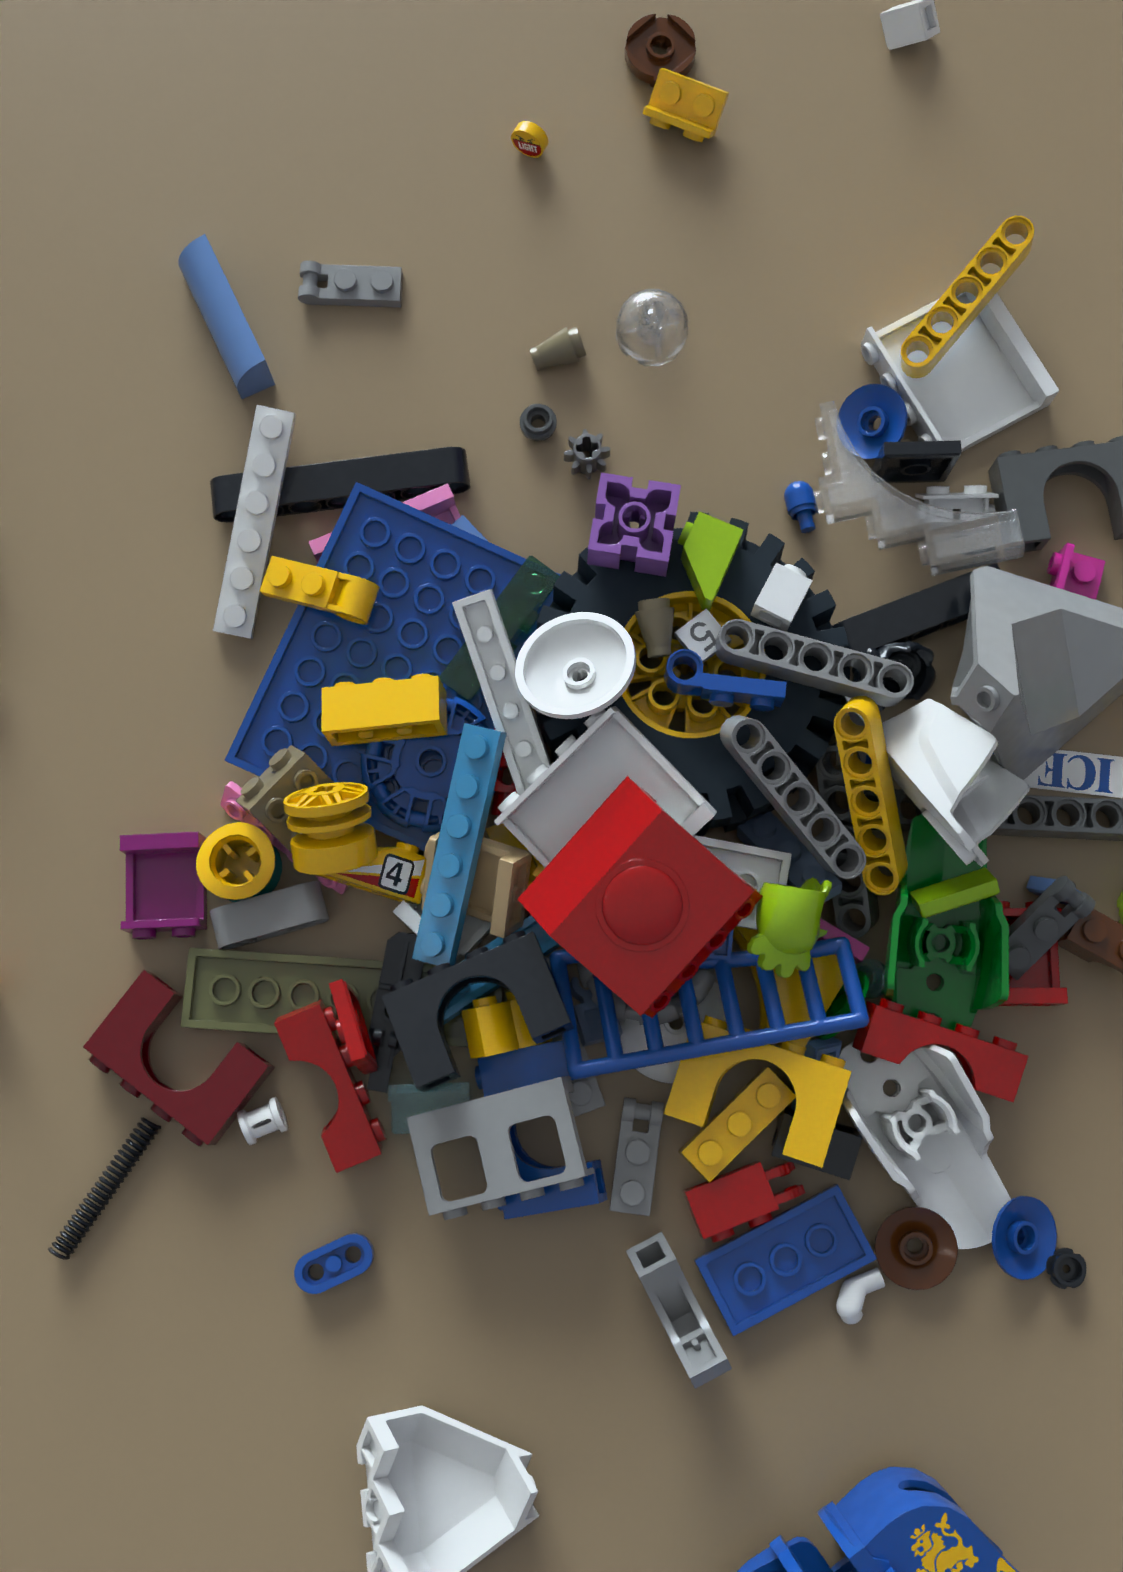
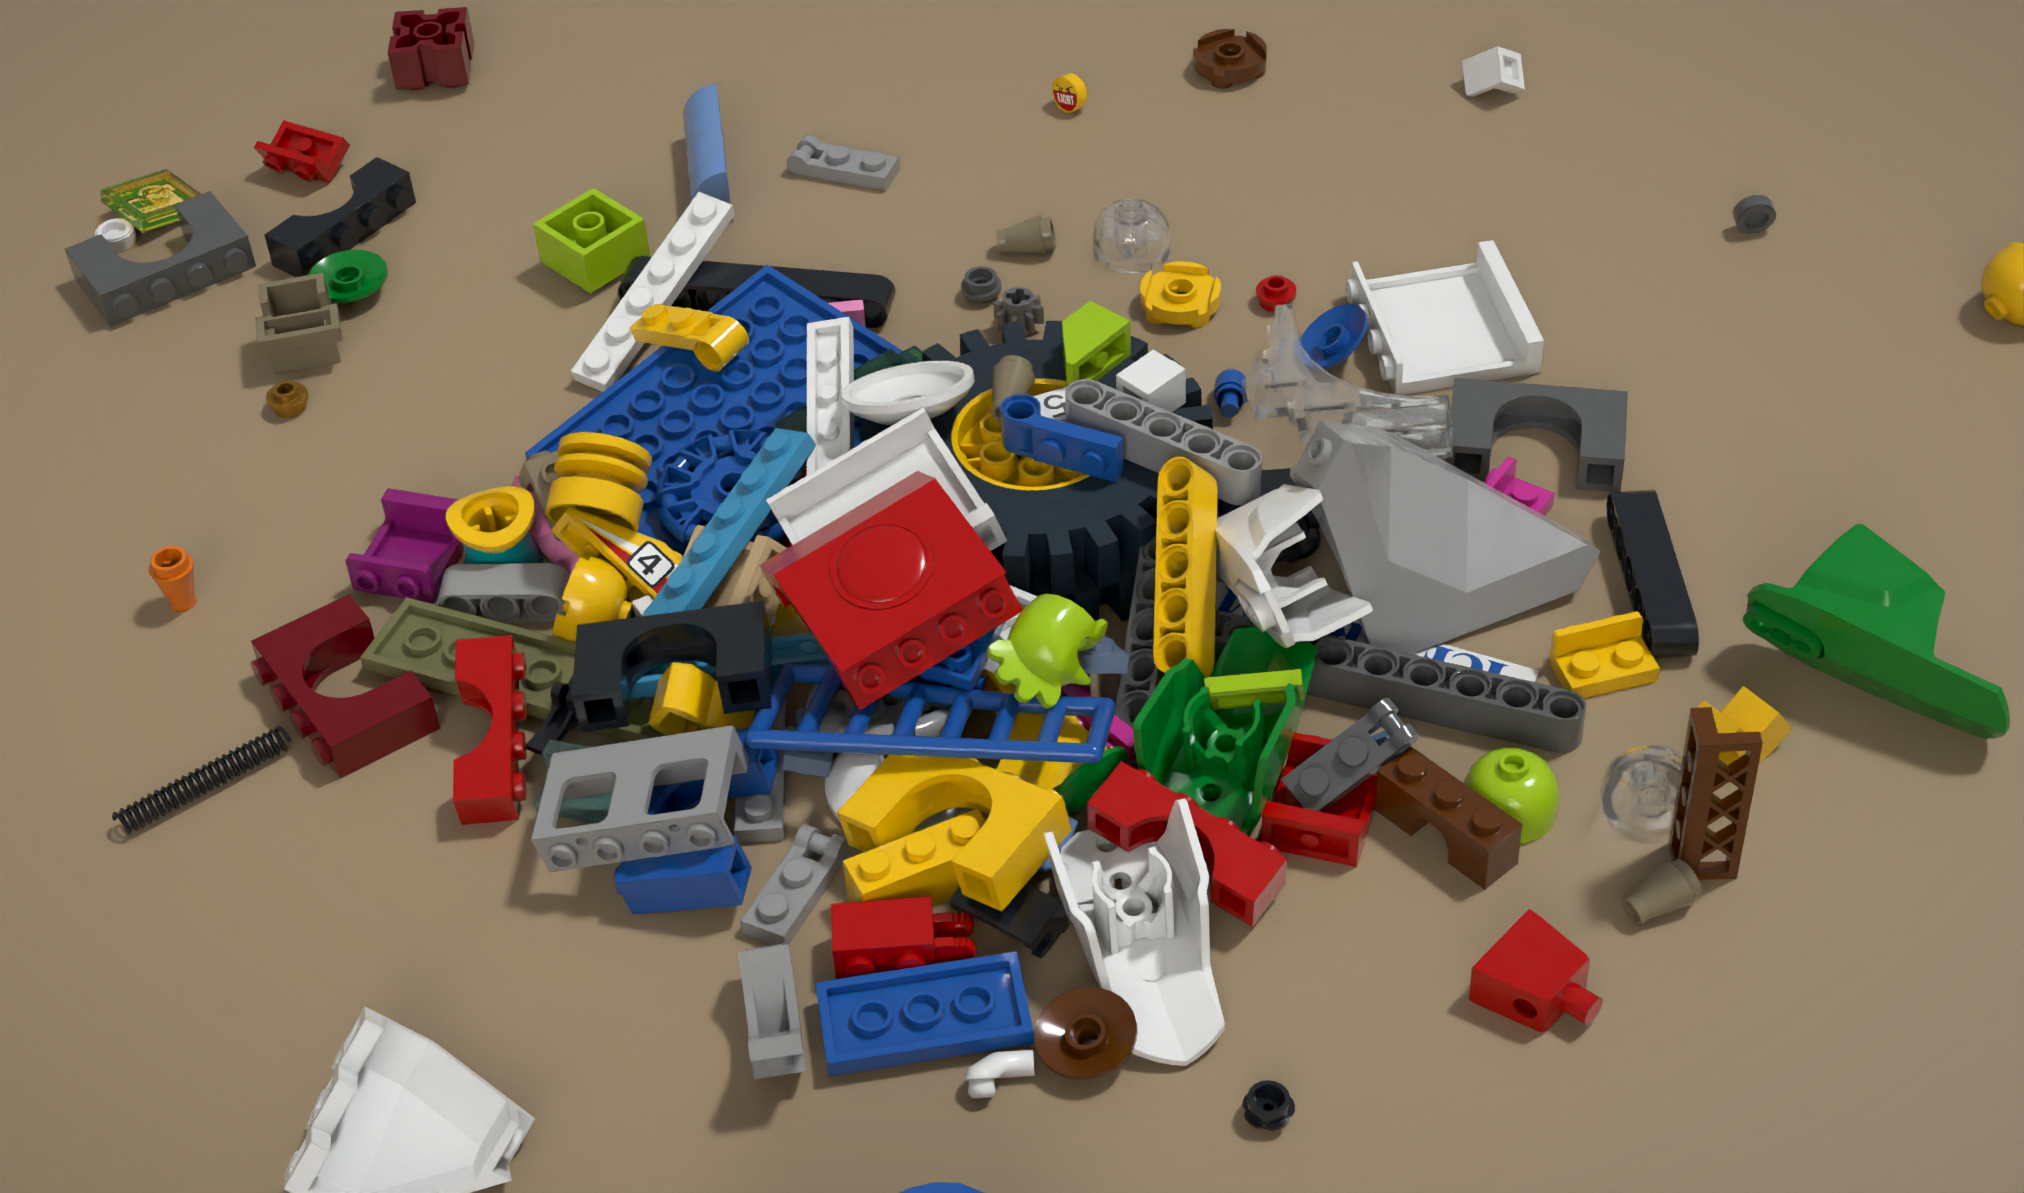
camera: 20 degrees right, 35 degrees down
(164, 462) = (591, 239): none -> lime brick
(250, 1121) = (400, 756): white bush -> none
(334, 1262) = (408, 896): blue plate -> none
(352, 1027) = (537, 662): red plate -> none
(358, 920) = (592, 595): none -> yellow cylinder
(384, 710) = (703, 424): yellow brick -> none
(618, 506) = (1019, 303): medium lavender brick -> none
(686, 105) = (1237, 91): yellow bracket -> none
(713, 410) = (1164, 304): none -> yellow plate
(800, 375) = (1275, 291): none -> red plate
(807, 808) = (1094, 561): light grey beam -> none
(916, 461) = (1364, 357): black plate -> none
(971, 280) = (1463, 249): yellow beam -> none
(1024, 1237) = (1234, 1040): blue dish -> none

